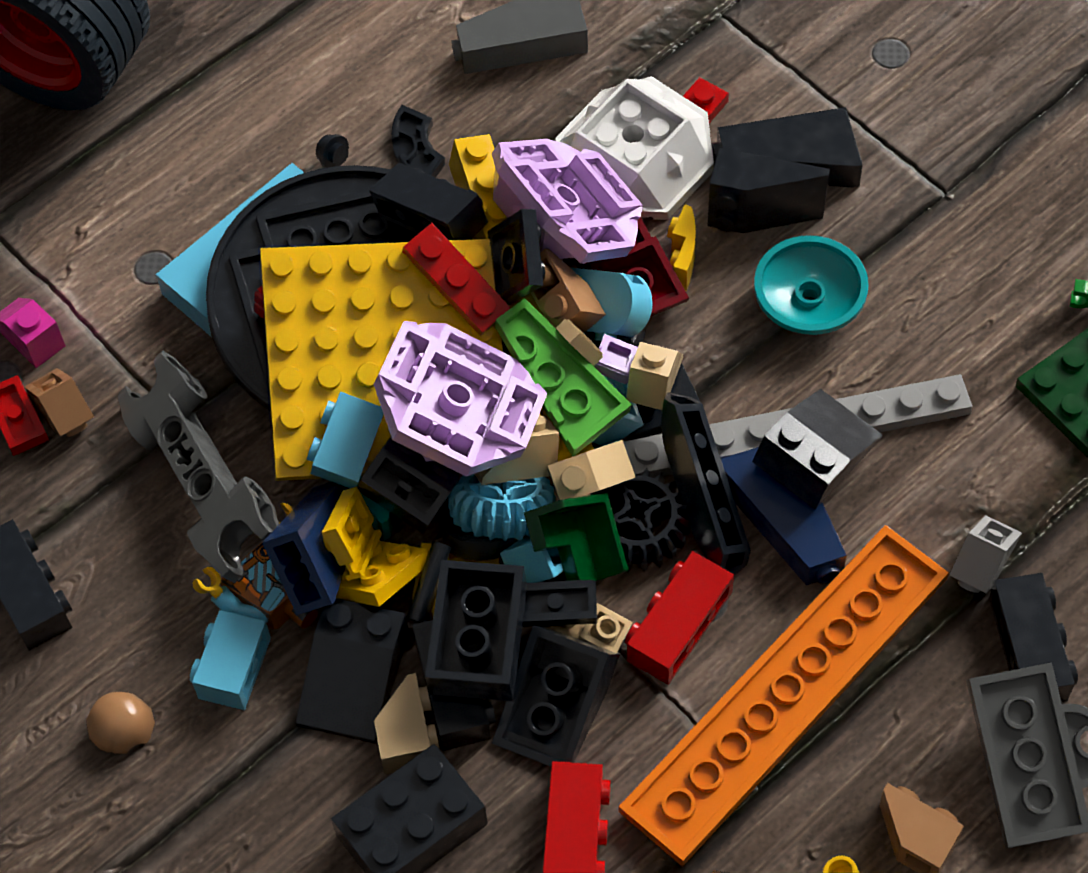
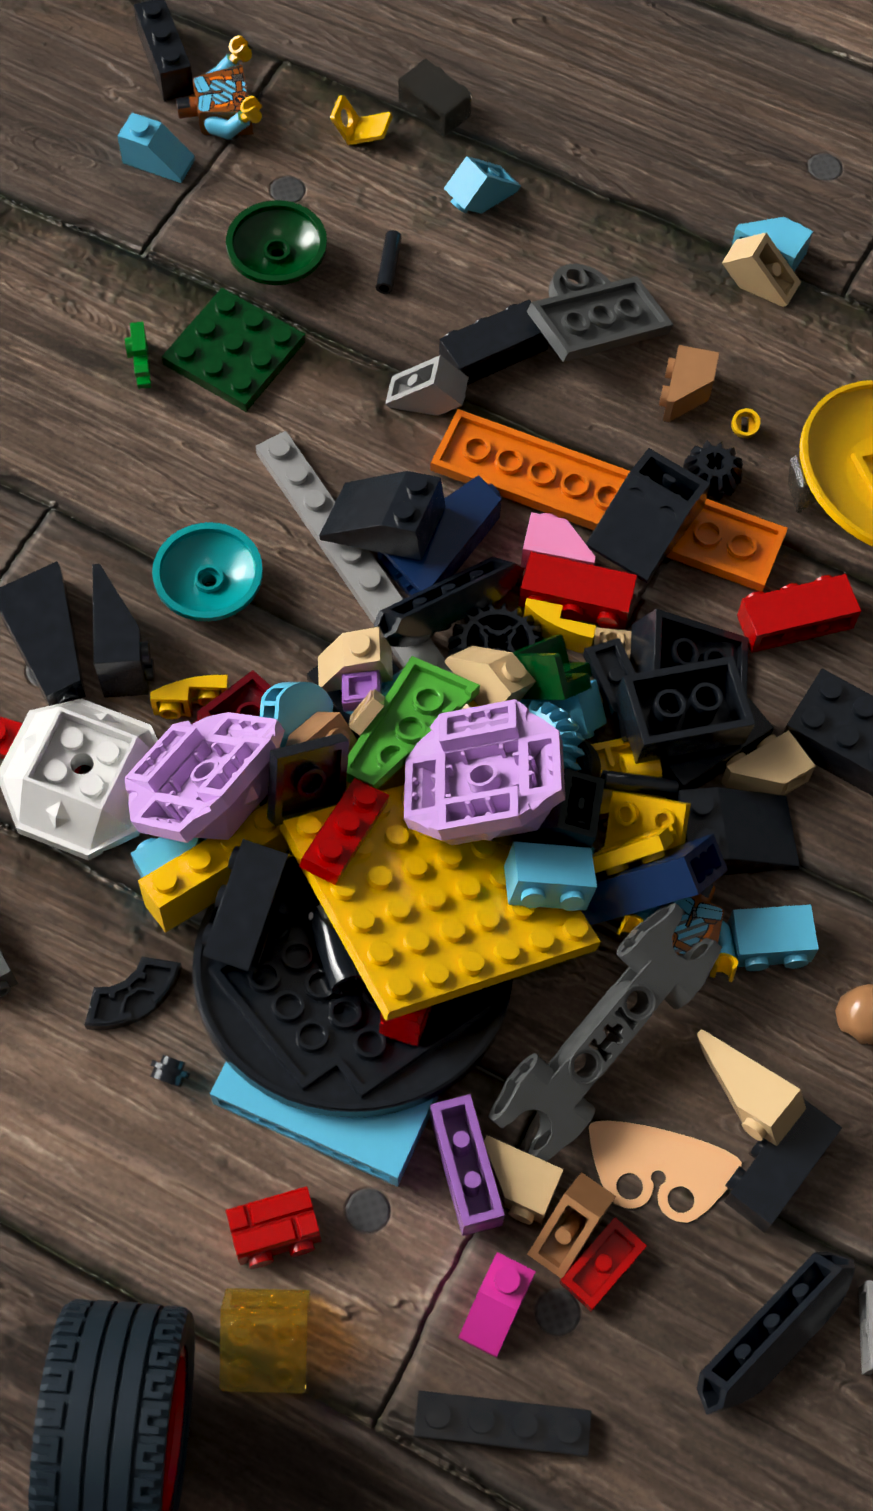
camera: 115 degrees left, 5 degrees up
(89, 565) = (760, 1097): none -> tan slope
(93, 160) = (264, 1340): none -> clear yellow bracket
(96, 489) = (643, 1149): none -> light nougat piece
(112, 368) = (522, 1180): none -> tan slope
(142, 330) = (466, 1165): none -> medium lavender brick
(167, 189) = (273, 1227): none -> red brick
(645, 580) = (548, 615): none -> yellow slope
(735, 701) = (648, 515): none -> black slope
(742, 613) = (555, 538): none -> bright pink slope
(793, 800) = (716, 467): none -> black gear

